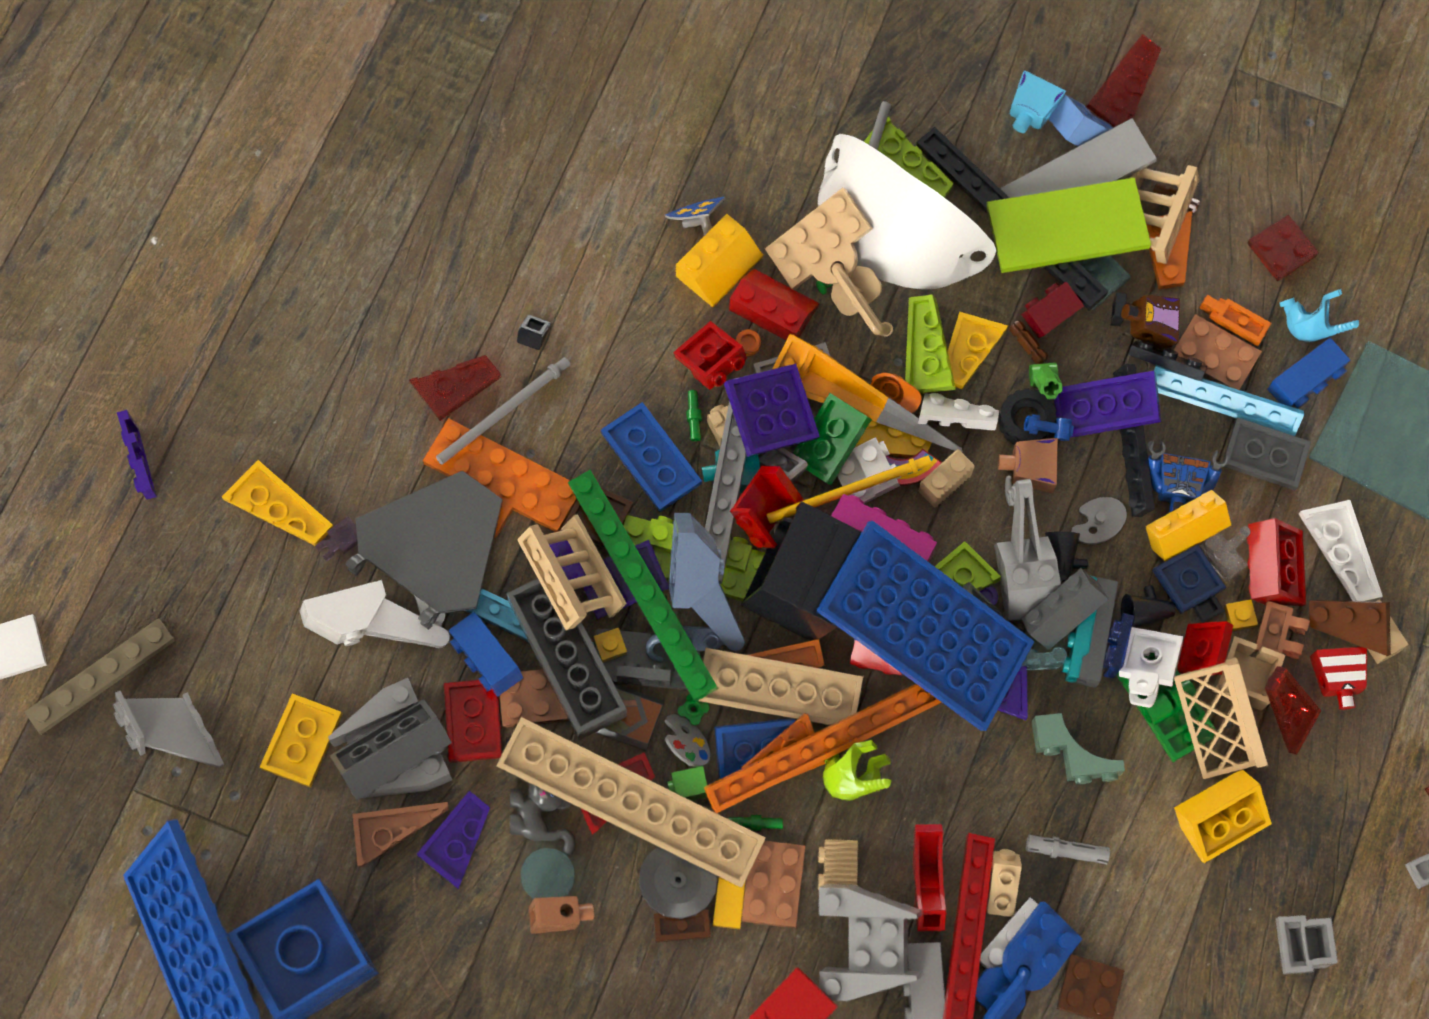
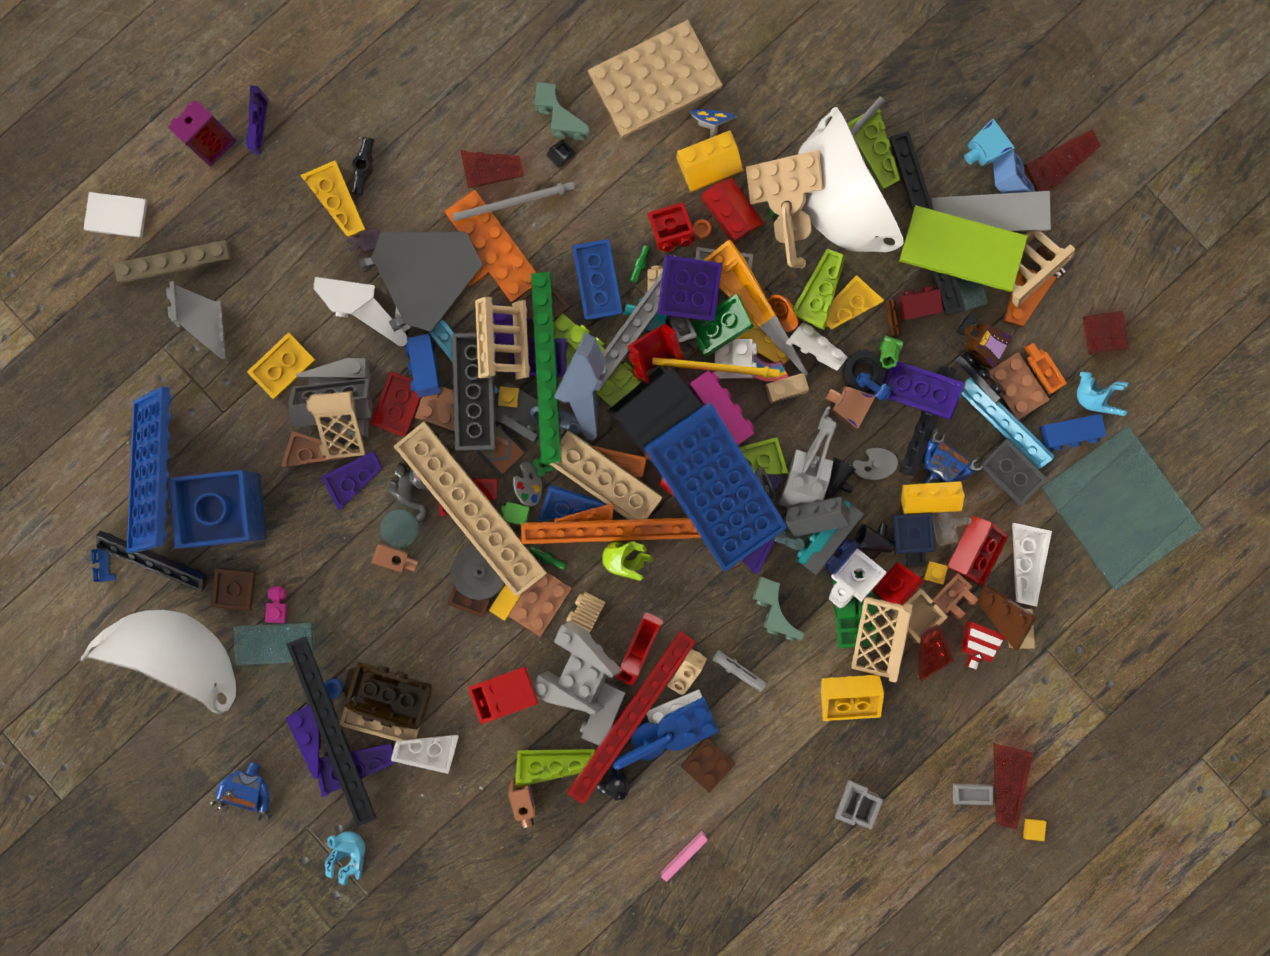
camera: 25 degrees right, 15 degrees up
(80, 494) = (202, 132): none -> magenta brick
(298, 463) = (364, 156): none -> black pin
(394, 748) = (334, 406): none -> tan piece
(520, 292) = (562, 122): none -> sand green arch
(605, 199) = (654, 78): none -> tan plate

